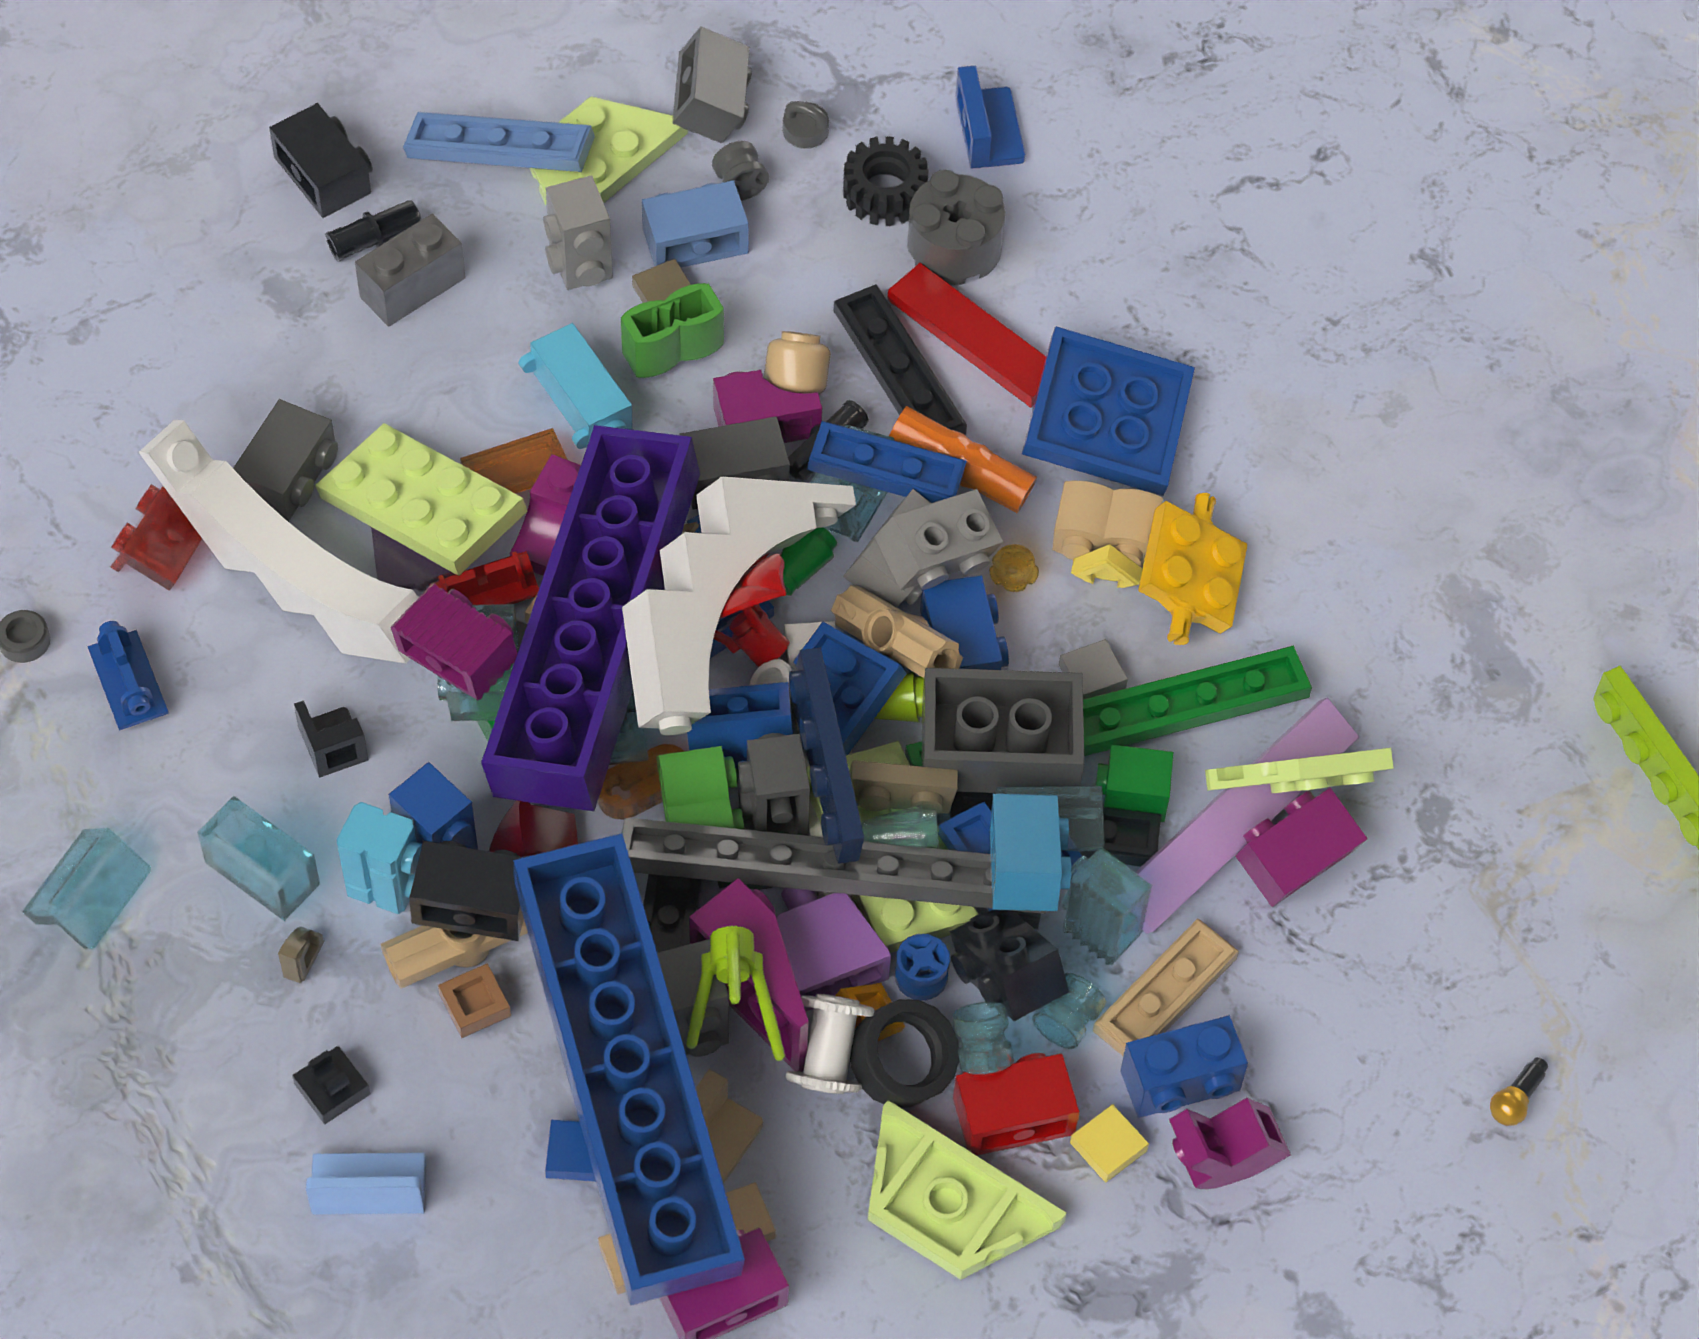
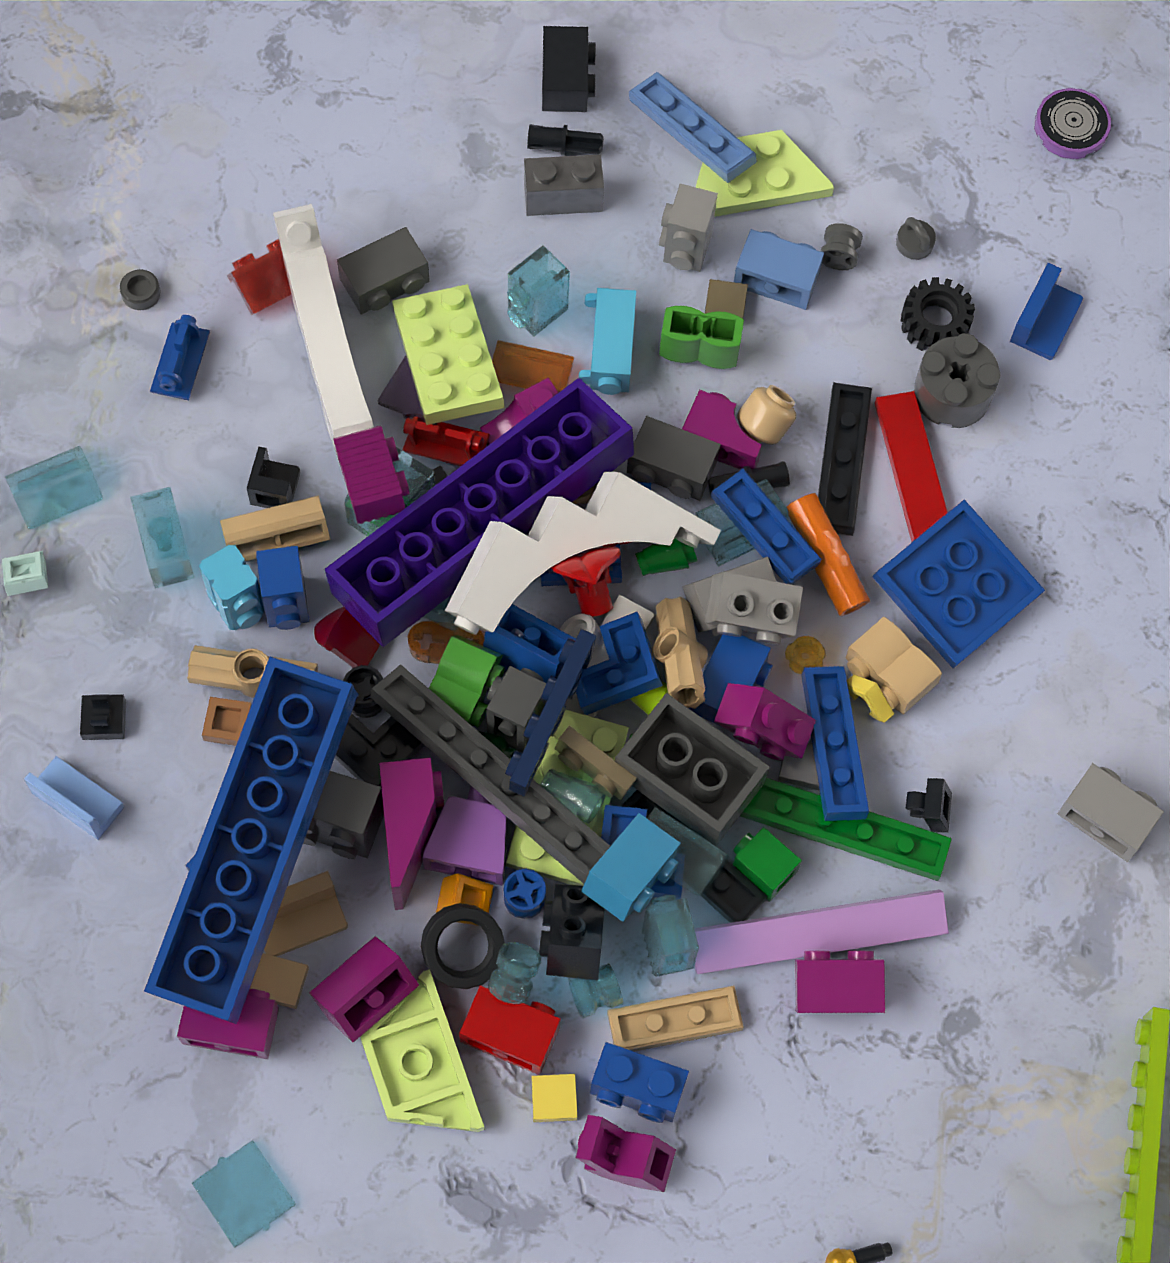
camera: 35 degrees right, 10 degrees up
(126, 993) = (25, 573): none -> light aqua tile
(299, 953) = (147, 615): dark tan tile -> none
(371, 775) = (280, 526): none -> tan piece
(466, 890) = (252, 637): black brick -> none
(471, 380) = (537, 291): none -> clear light blue brick
(711, 85) = (867, 172): brick -> none
(733, 961) = (375, 812): lime plant -> none
(830, 1044) = (417, 907): white hose -> none
(838, 1161) = (364, 989): none -> magenta brick
(1034, 639) = (764, 721): none -> magenta brick
(1113, 627) = (835, 744): none -> blue plate
(1192, 568) = (925, 735): yellow plate -> none
(1248, 628) = (932, 805): none -> black tile
(1304, 772) = (879, 937): yellowish green wing -> none
(1419, 528) = (1111, 811): none -> light grey brick

